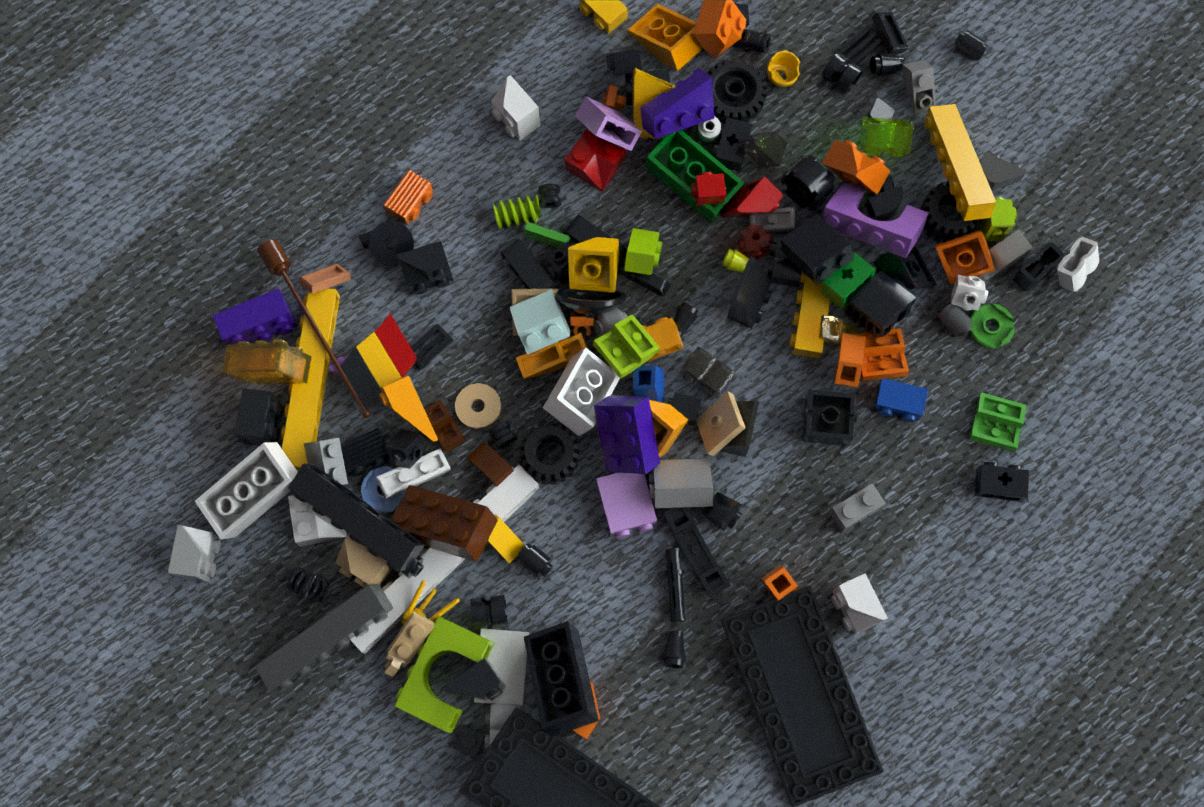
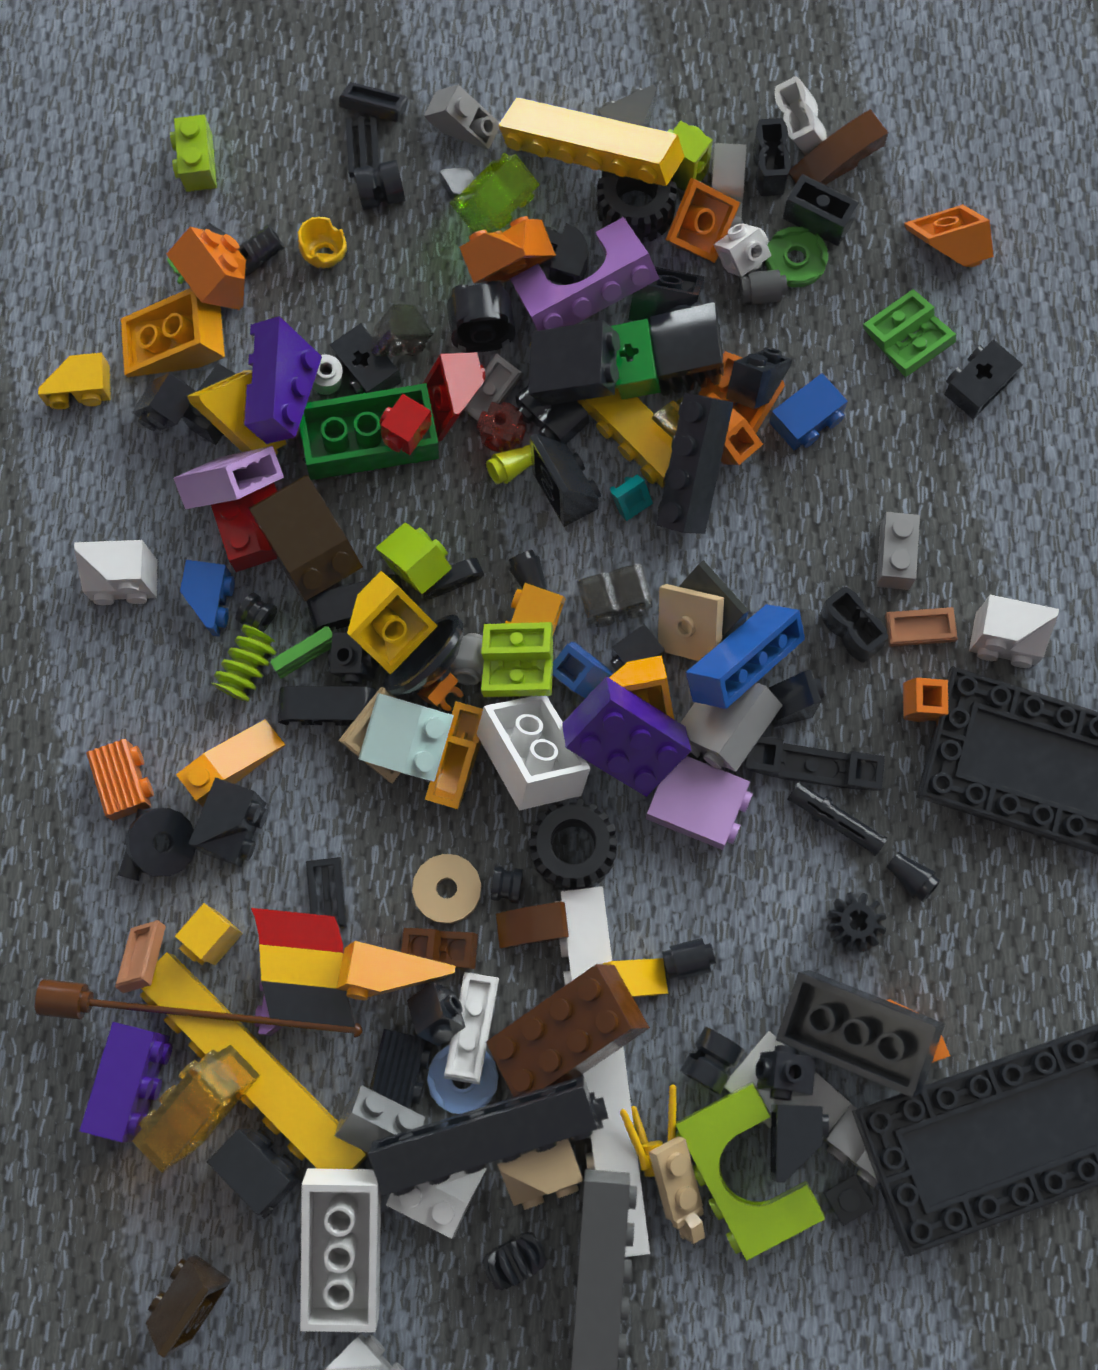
camera: 50 degrees left, 0 degrees up
(167, 436) = (185, 1304): none -> dark brown slope
(359, 302) = (207, 936): none -> yellow brick
(461, 244) = (230, 760): none -> light orange slope
(509, 654) = (785, 1073): none -> black brick
(541, 159) = (206, 587): none -> blue slope
(607, 187) = (305, 538): none -> dark brown slope
(613, 100) = (196, 454): orange tile -> none
(629, 642) = (868, 924): none -> black gear
(724, 465) = (745, 656): none -> blue brick
(746, 81) = (307, 293): black wheel -> none
(771, 340) = (631, 497): none -> teal tile
(792, 519) = (847, 618): none -> black brick
(813, 357) = (694, 463): none -> black brick
(824, 553) = (921, 626): none -> nougat tile
(829, 417) = (772, 502): black brick -> none
(885, 64) = (406, 134): black cone -> none
(896, 356) = (757, 377): none -> black slope
(970, 45) = (459, 32): black brick -> none
(1028, 317) = (820, 209): none -> black brick
(1075, 303) = (842, 149): none -> reddish brown slope
(1078, 403) = (957, 234): none -> orange slope

